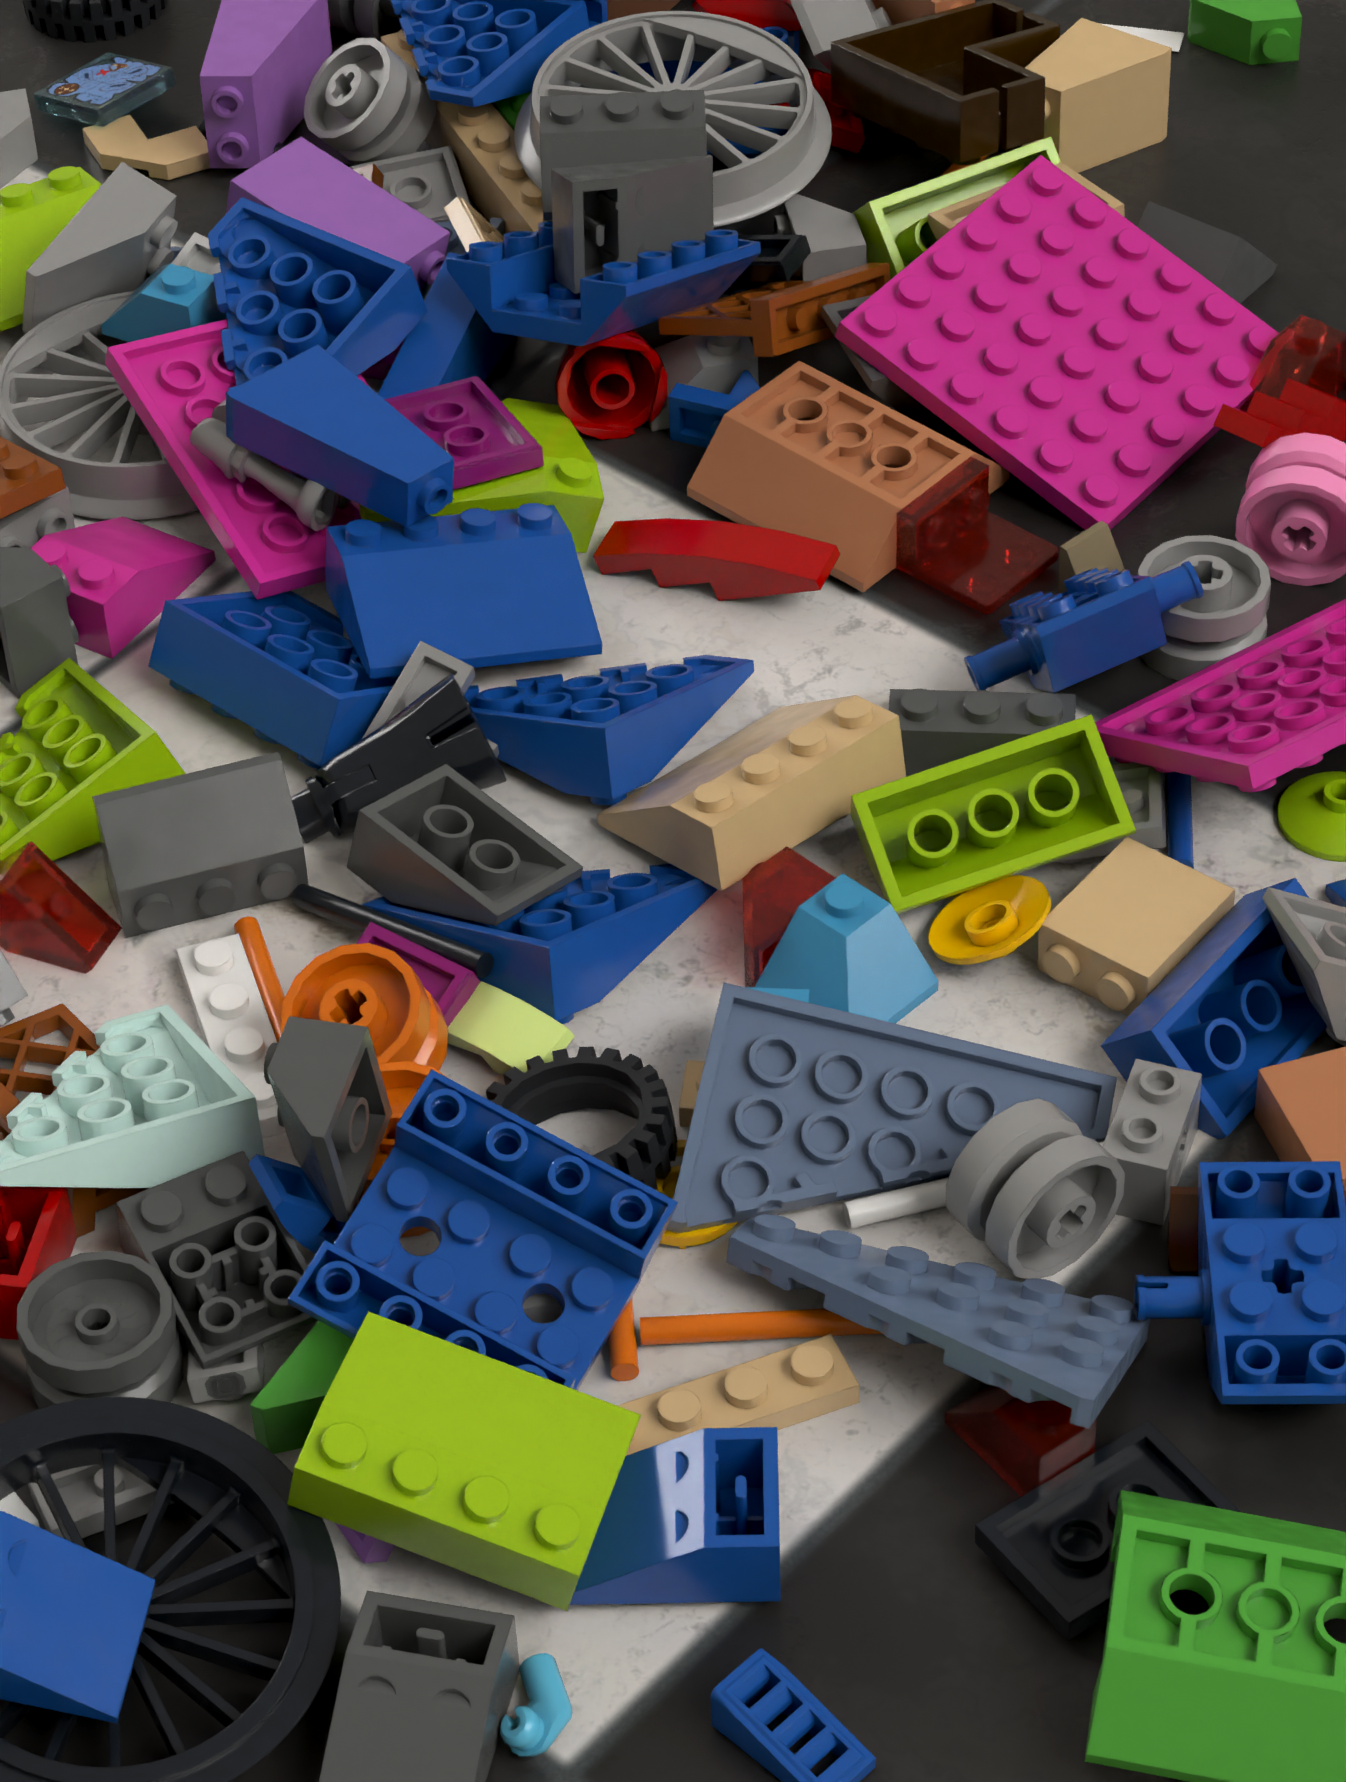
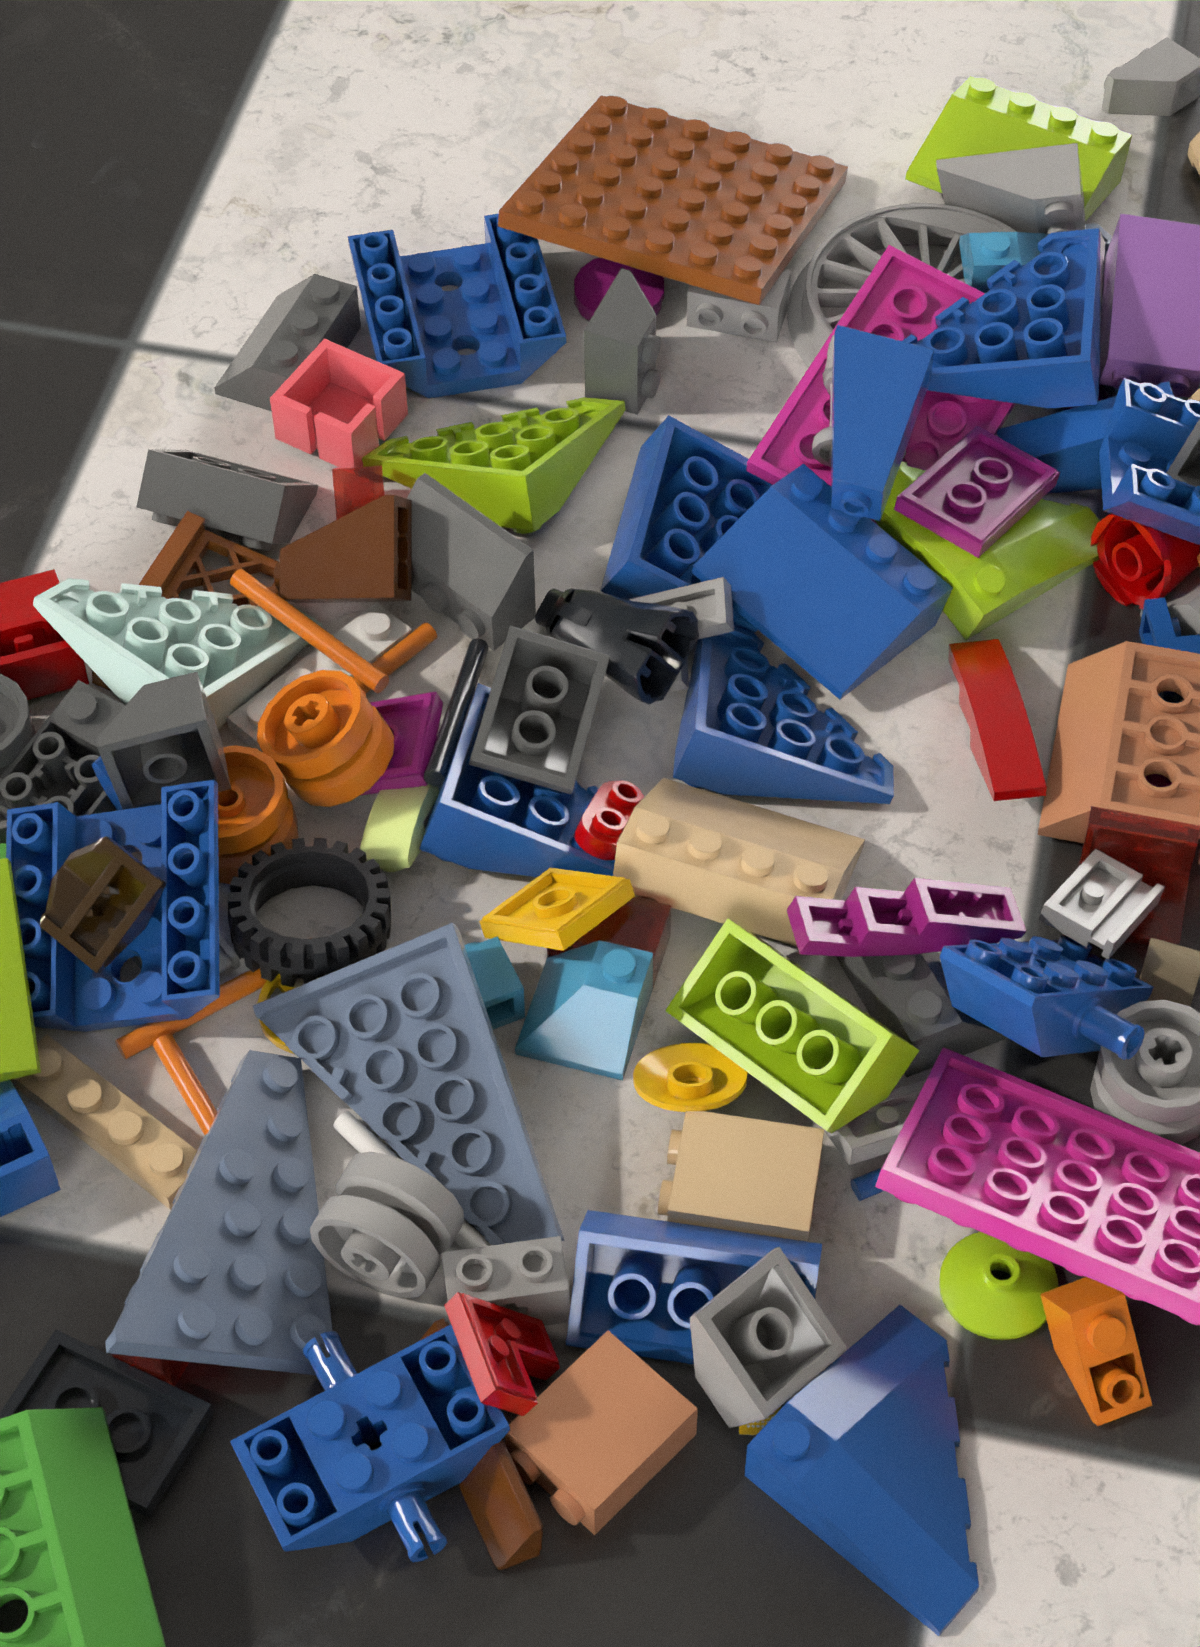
camera: 60 degrees right, 10 degrees up
(120, 577) = (723, 377): dark pink slope -> none
(129, 922) = (352, 558): none -> reddish brown slope
(178, 1004) = (309, 631): none -> orange bar
(481, 1253) = (100, 902): none -> dark brown slope
(629, 862) = (606, 818): none -> red plate
(732, 925) = (557, 908): none -> yellow tile
(951, 671) = (905, 921): none -> magenta slope
(998, 563) = (1100, 903): none -> light grey plate
(1246, 1147) = (501, 1351): none -> red tile

